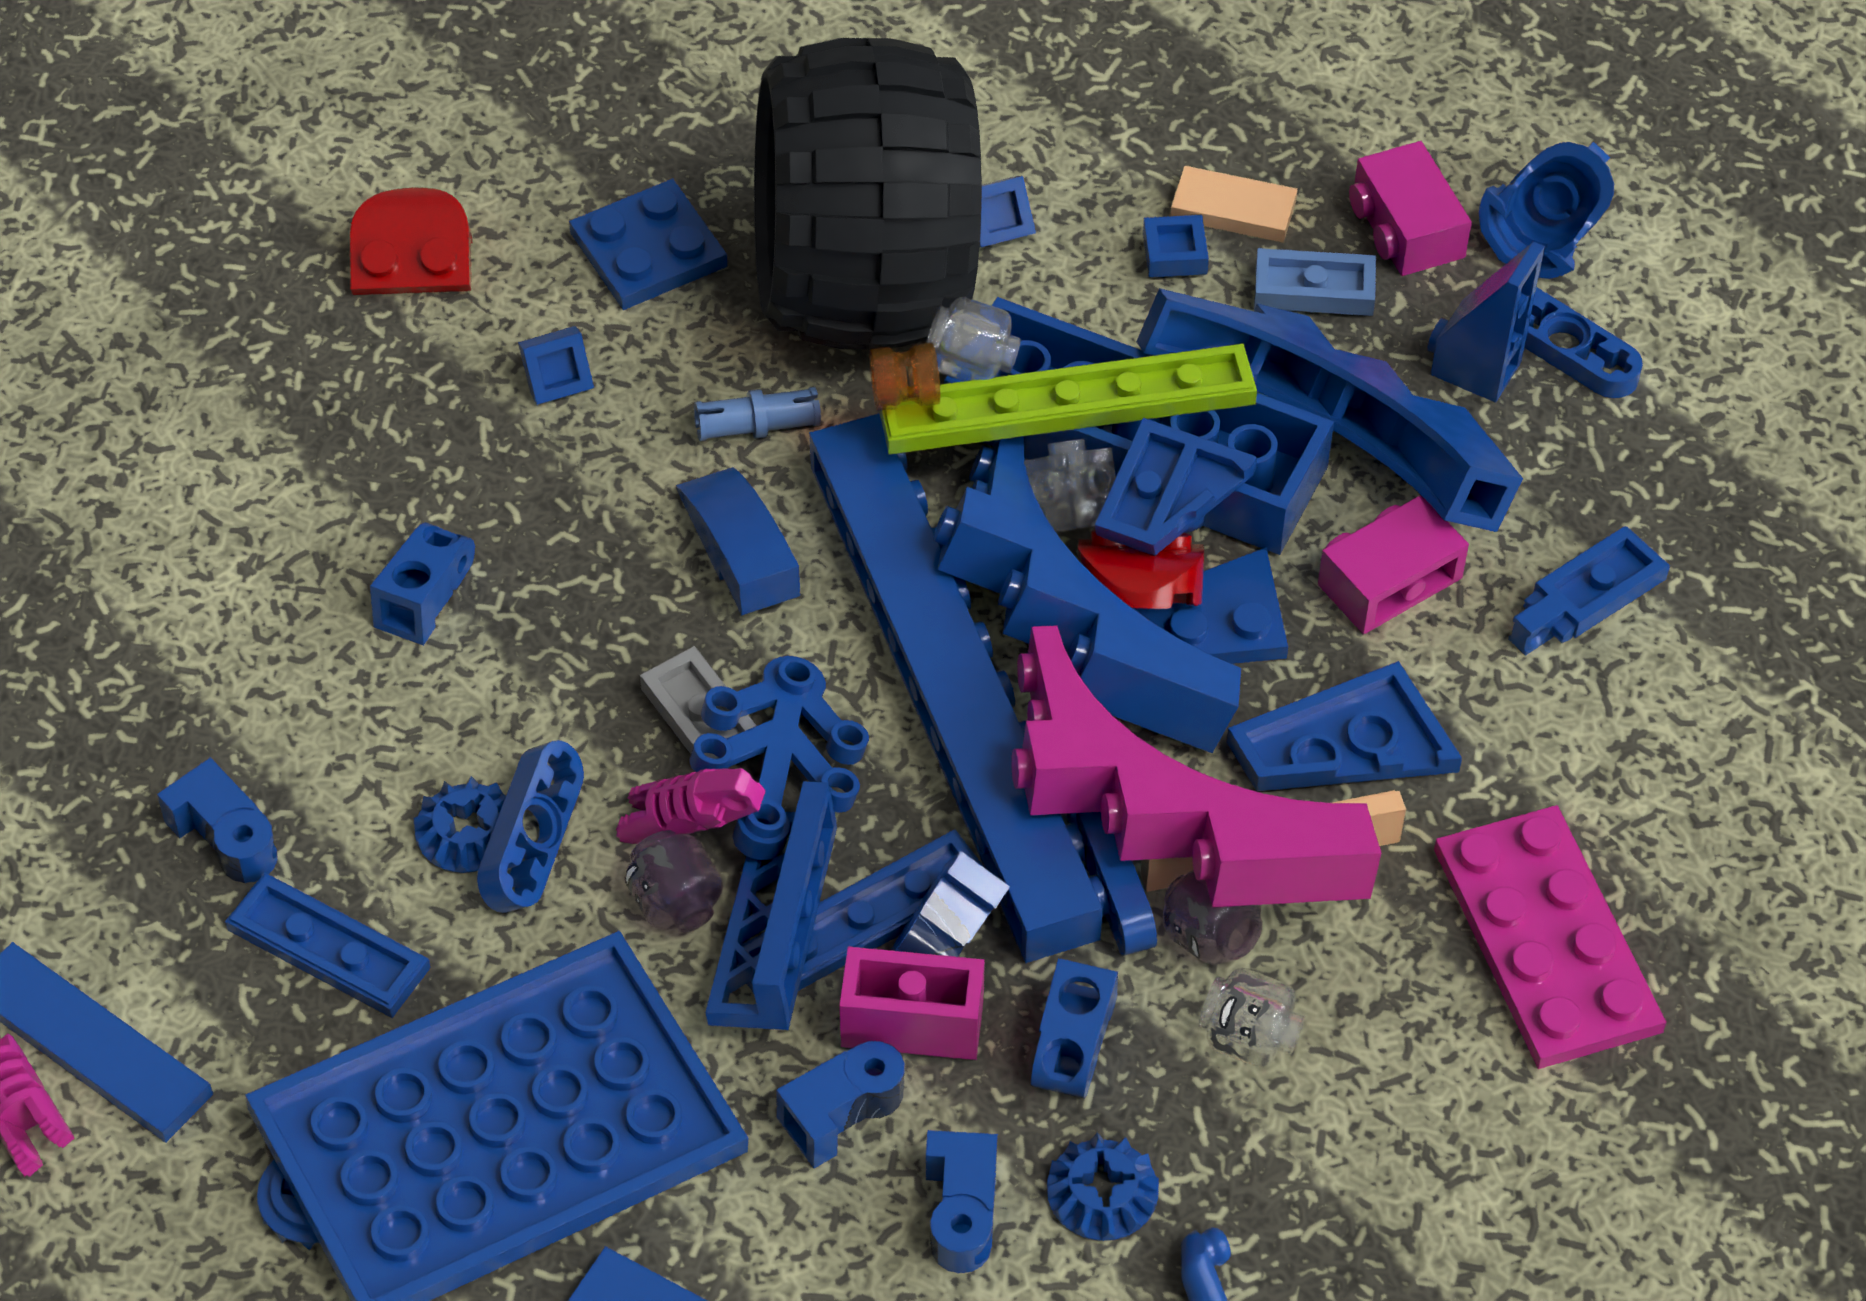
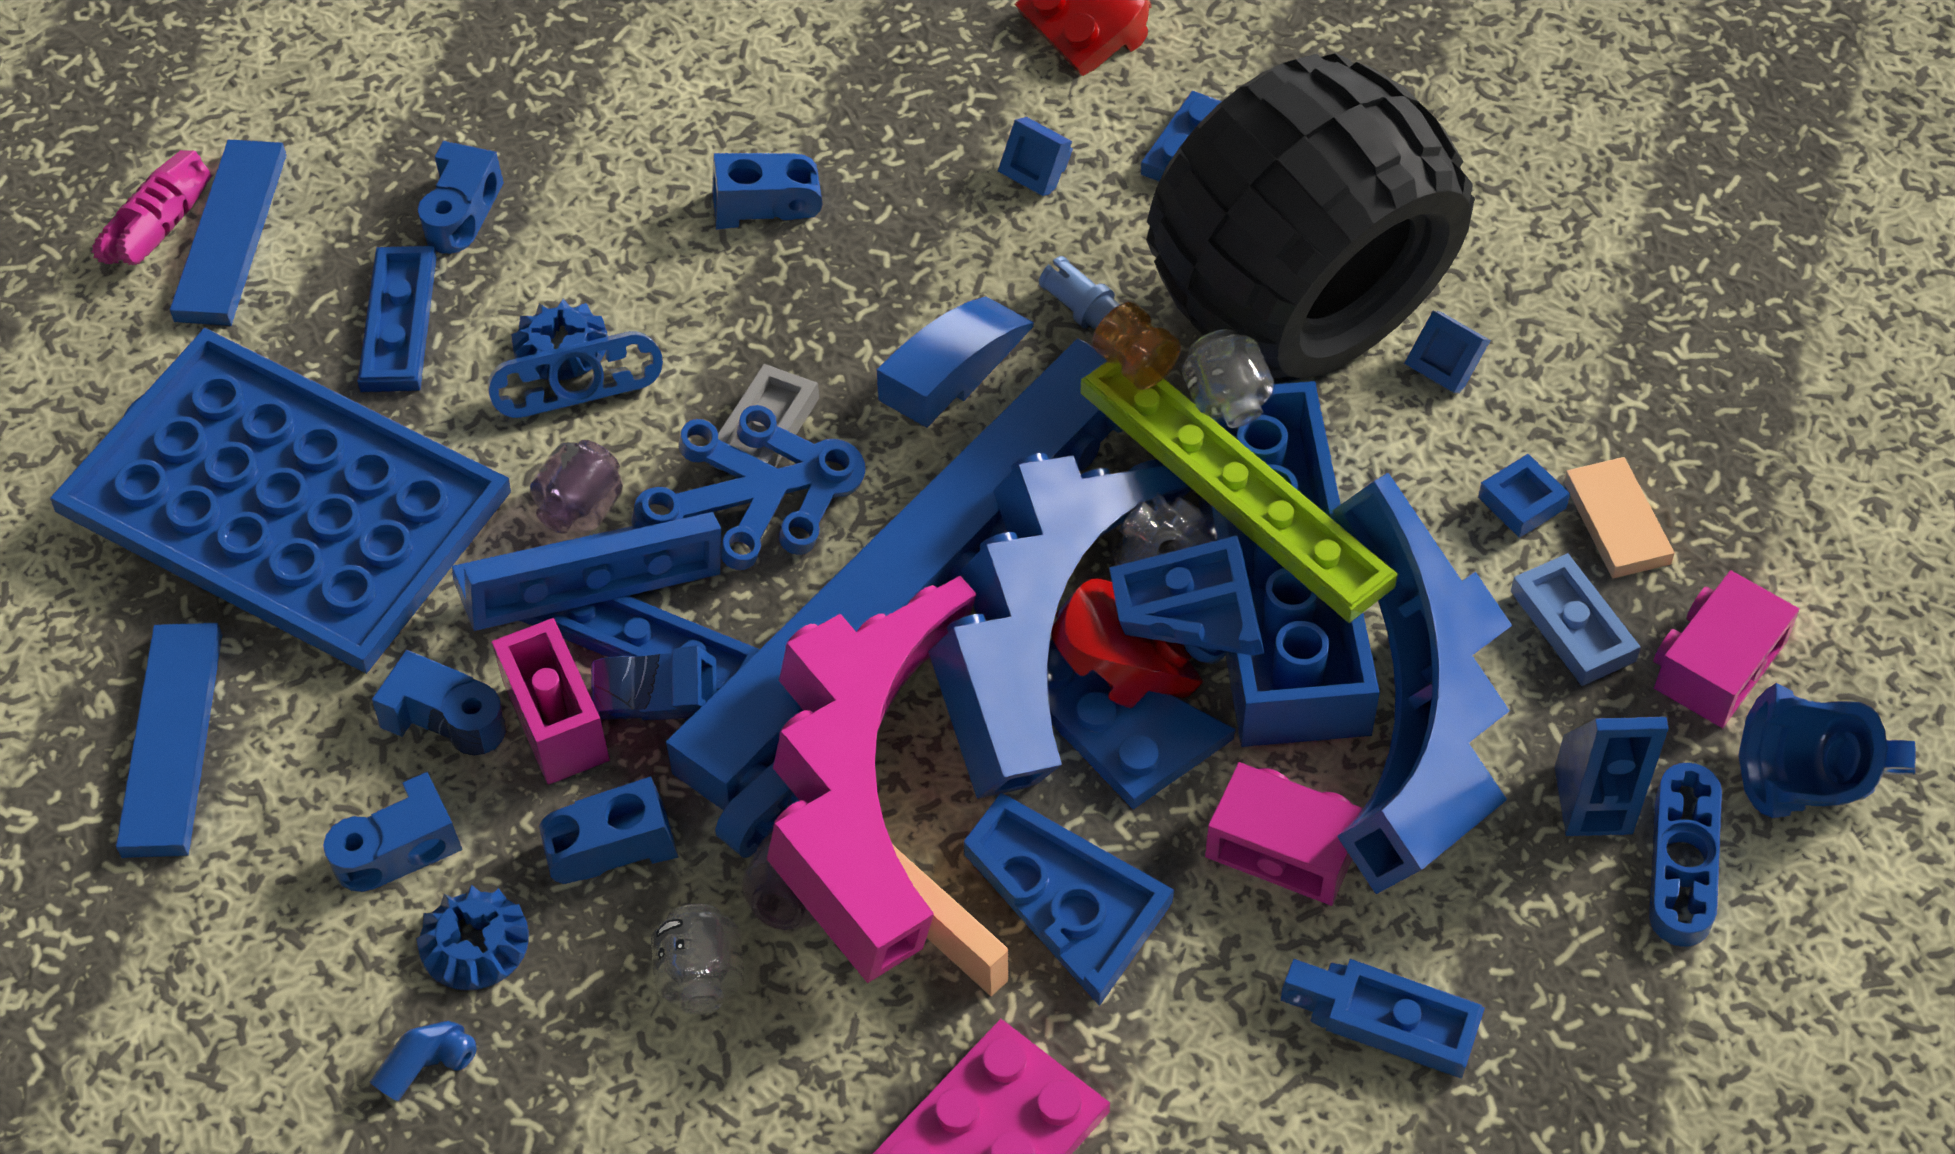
camera: 60 degrees right, 0 degrees up
(690, 803) = (647, 453): dark pink hinge -> none

